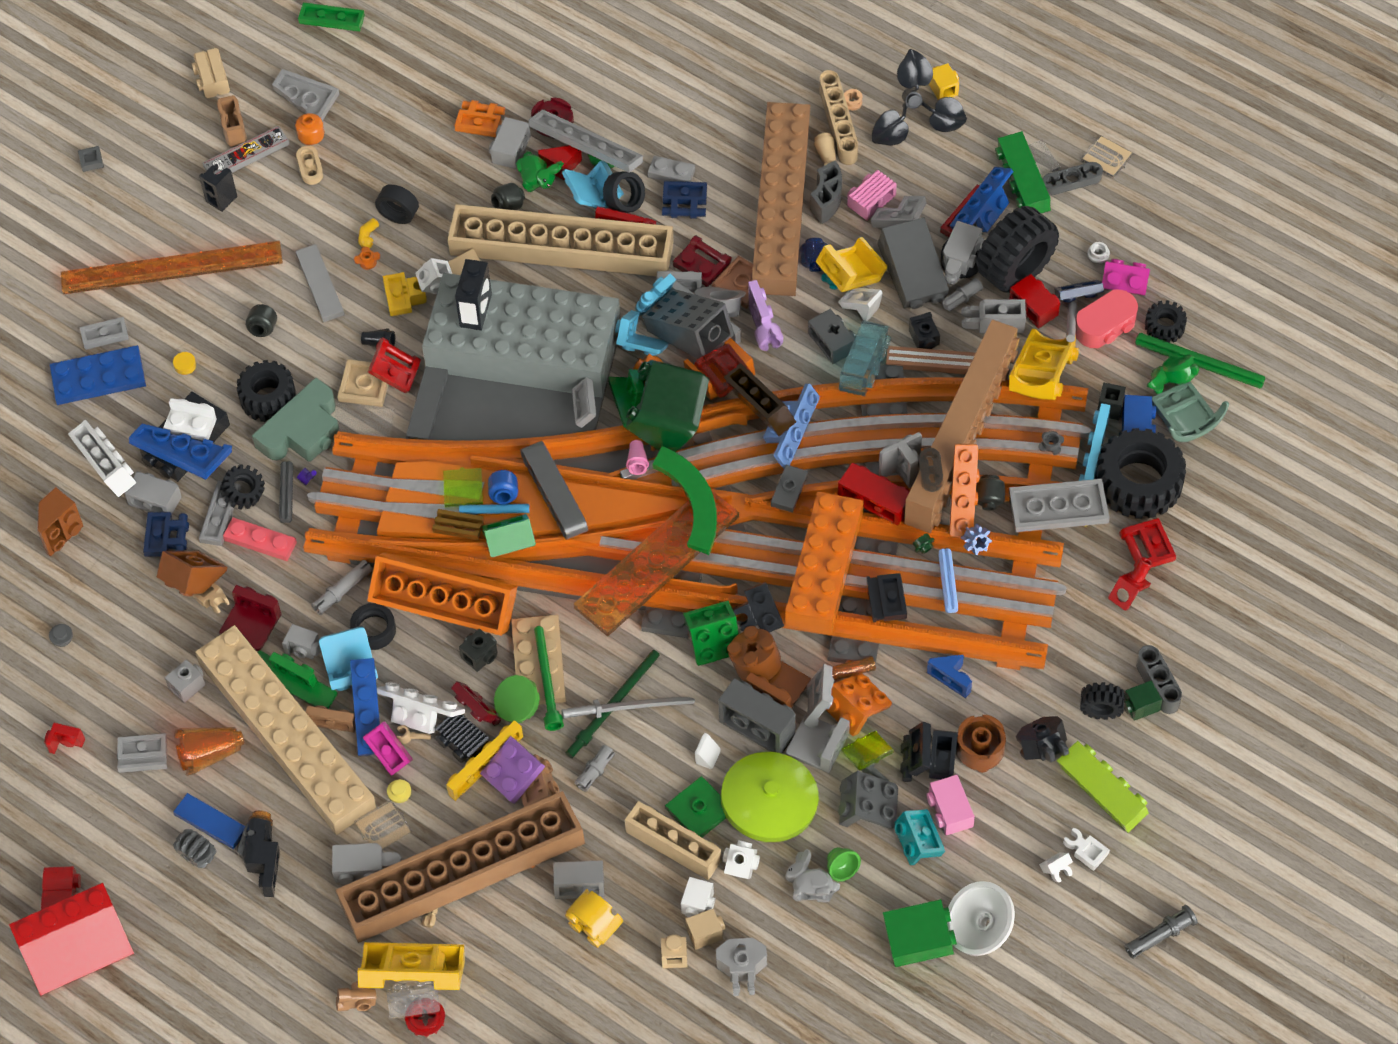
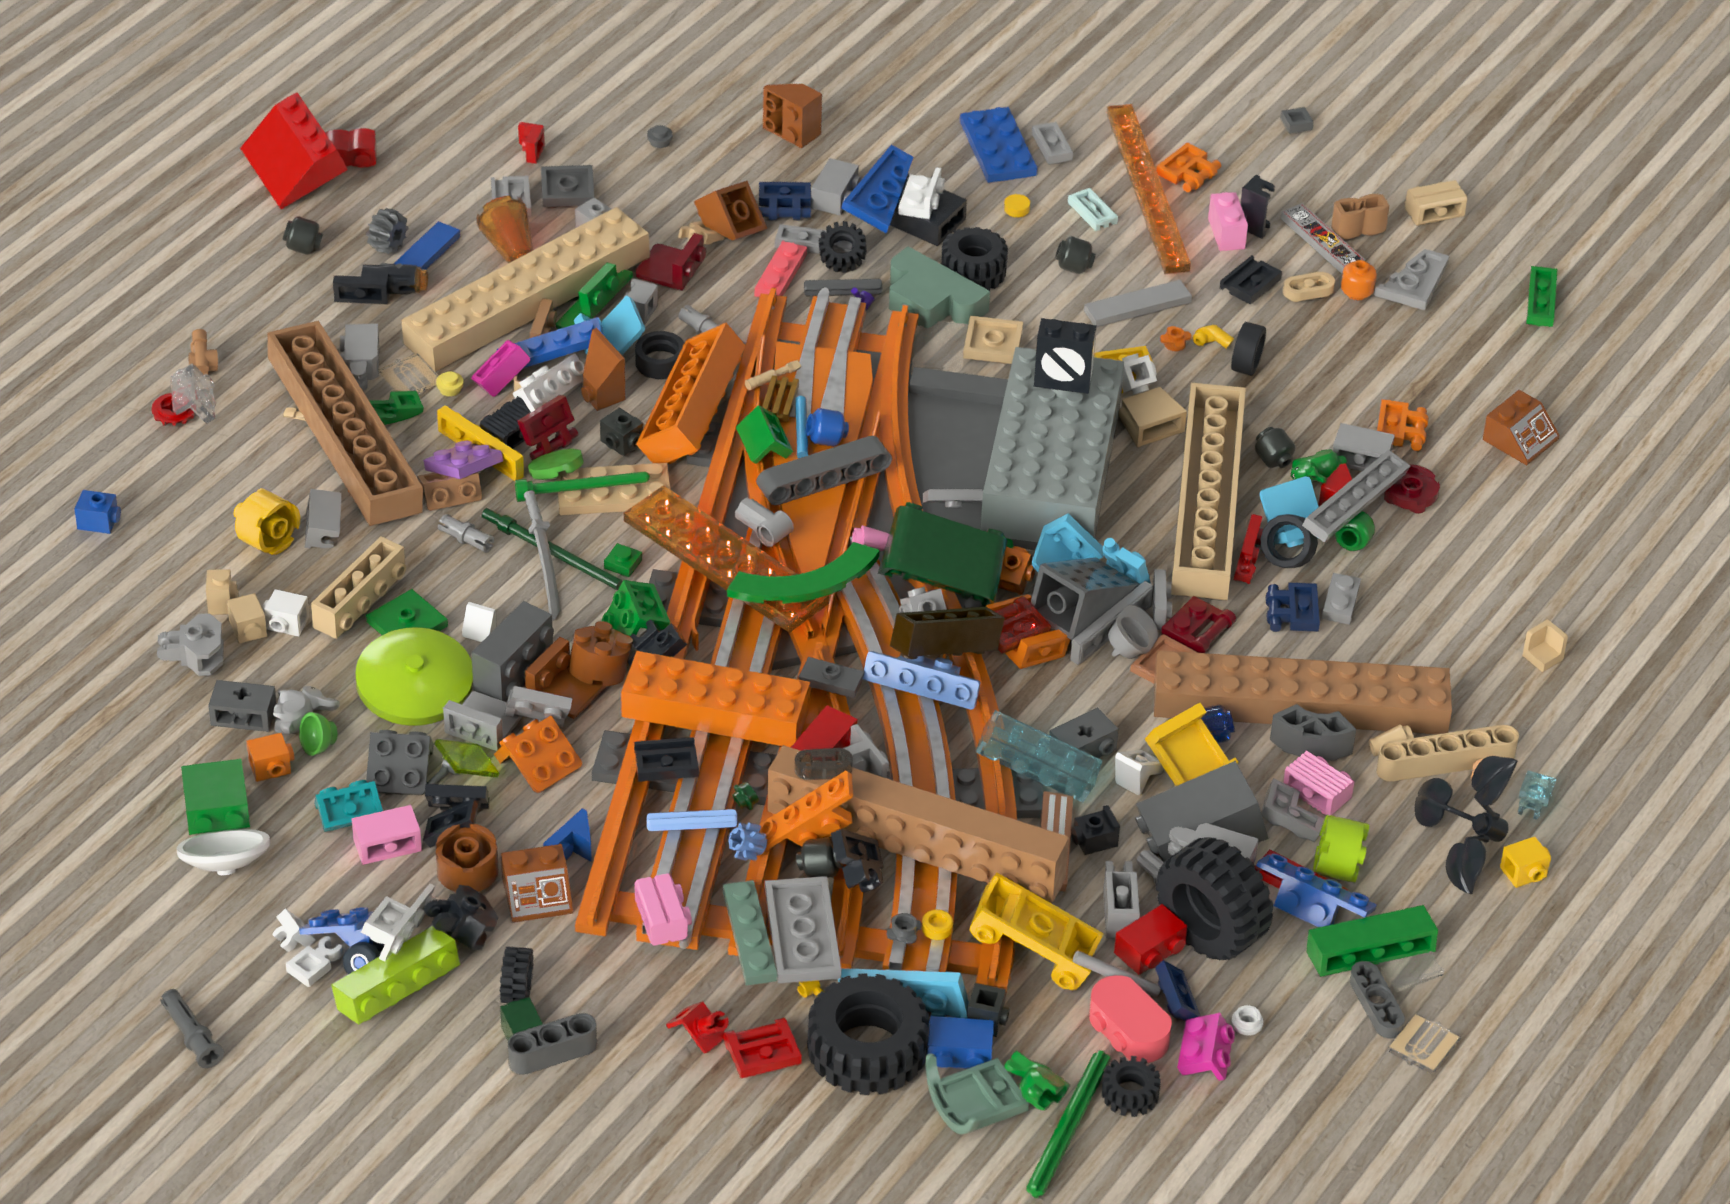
camera: 85 degrees right, 15 degrees down
(100, 455) = (869, 135): white brick -> none
(130, 707) = (567, 185): none -> dark grey plate
(144, 243) = (1182, 164): none -> orange plate
(188, 924) = (302, 235): none -> pearl dark grey head
(195, 312) = (1088, 210): none -> light aqua tile
(226, 212) = (1227, 221): none -> bright pink brick
(298, 203) = (1251, 280): none -> black plate
(392, 371) = (1002, 348): red plate -> none
(404, 664) = (603, 373): none -> dark orange slope
(412, 962) = (223, 385): yellow piece -> none
(427, 531) = (765, 377): none -> tan piece
(428, 829) = (399, 407): none -> green slope
(463, 487) = (835, 398): clear neon green piece -> none
(487, 45) = (1520, 428): none -> dark orange slope
(620, 527) = (769, 526): none -> light grey piece
(626, 650) = (623, 560): none -> green plate
(721, 420) = (922, 600): none -> light grey brick
(727, 52) = (1545, 645): none -> tan panel
(734, 866) = (327, 644): white brick -> none
(762, 314) = (1100, 663): lavender plate -> none
(808, 937) = (242, 705): none -> dark grey brick
(851, 668) = (584, 748): clear orange pin -> none
(868, 897) = (269, 756): none -> orange brick
(872, 70) = (1535, 792): none -> clear light blue plate
(944, 182) = (1340, 848): none -> lime brick
(998, 695) = (536, 883): none -> dark orange slope
(1003, 463) = (861, 857): none -> black plate
(1043, 422) = (937, 924): none -> yellow tile
(1046, 595) = (662, 909): none -> bright pink brick
(1058, 782) = (395, 922): none -> white bracket
(1059, 541) = (749, 933): none -> sand green plate
(1059, 825) = (348, 928): none -> plate

